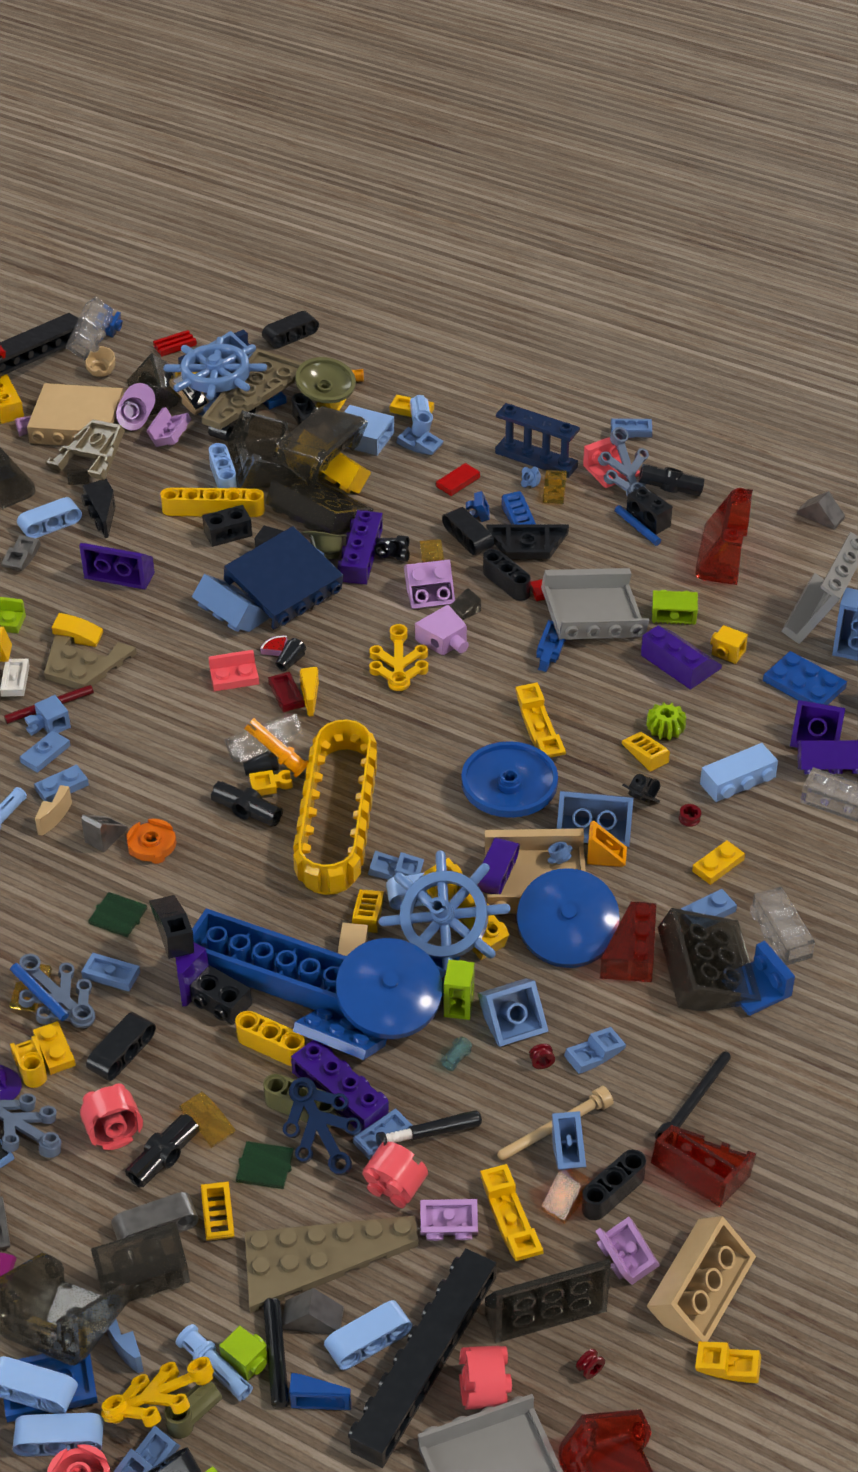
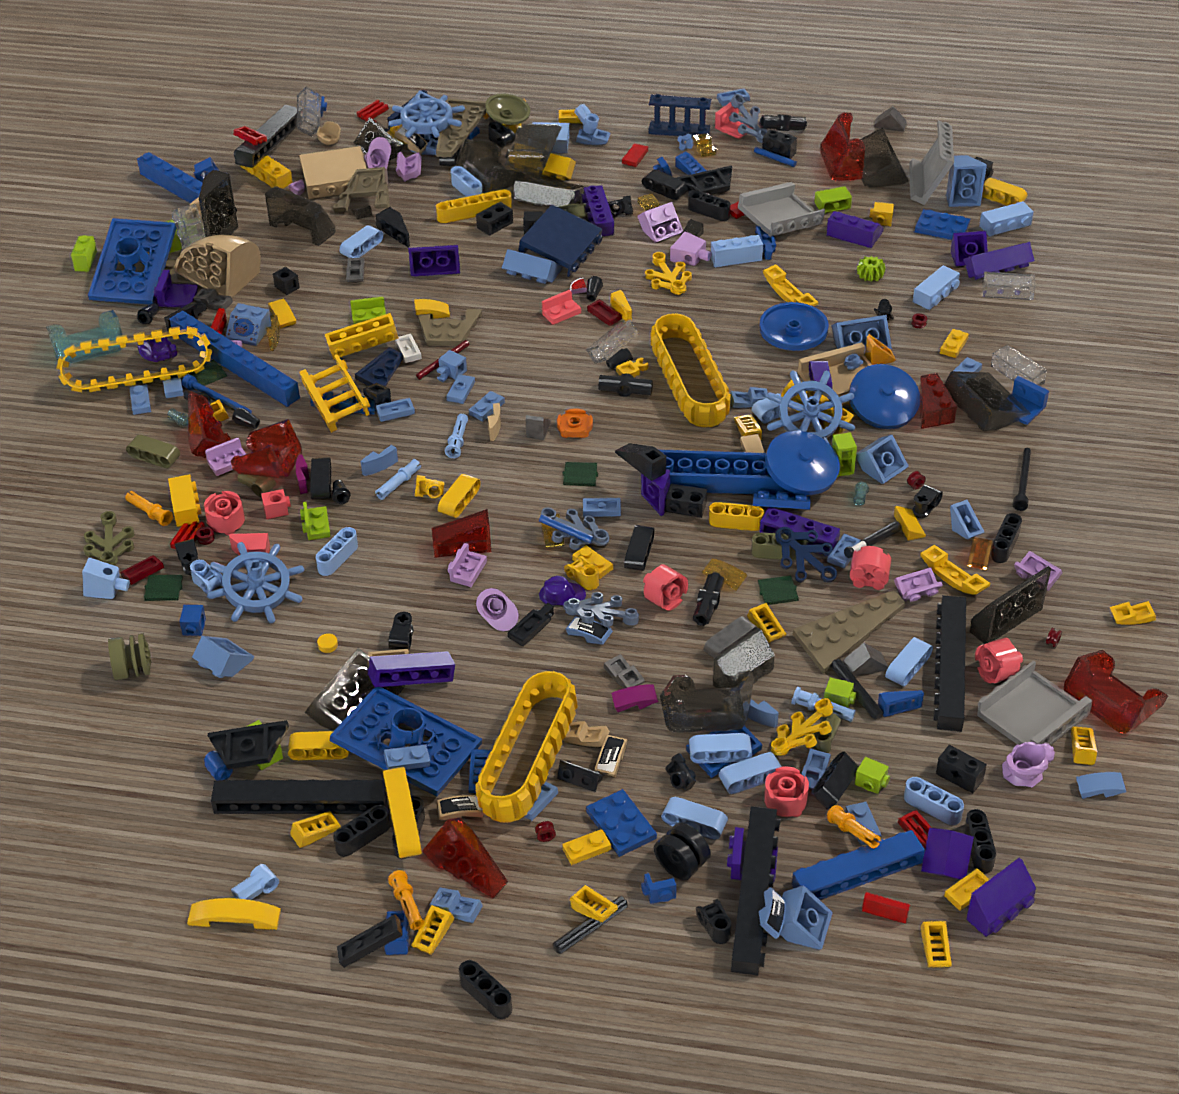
camera: 20 degrees left, 0 degrees up
(285, 754) = (635, 348): light orange pin -> none
(290, 329) = (453, 83): black beam -> none
(497, 1118) = (909, 523): none -> yellow slope
(502, 649) = (736, 251): none -> light blue brick
(536, 1092) = (926, 501): none -> black piece
(597, 1050) = (946, 468): medium blue slope -> none
(600, 1099) = (966, 493): tan piece -> none
(650, 762) = (868, 290): yellow slope -> none
(702, 1165) = (1053, 511): clear red wedge -> none
(702, 1280) = (1091, 573): tan slope -> none
(769, 566) = (880, 162): none -> clear smoke windscreen

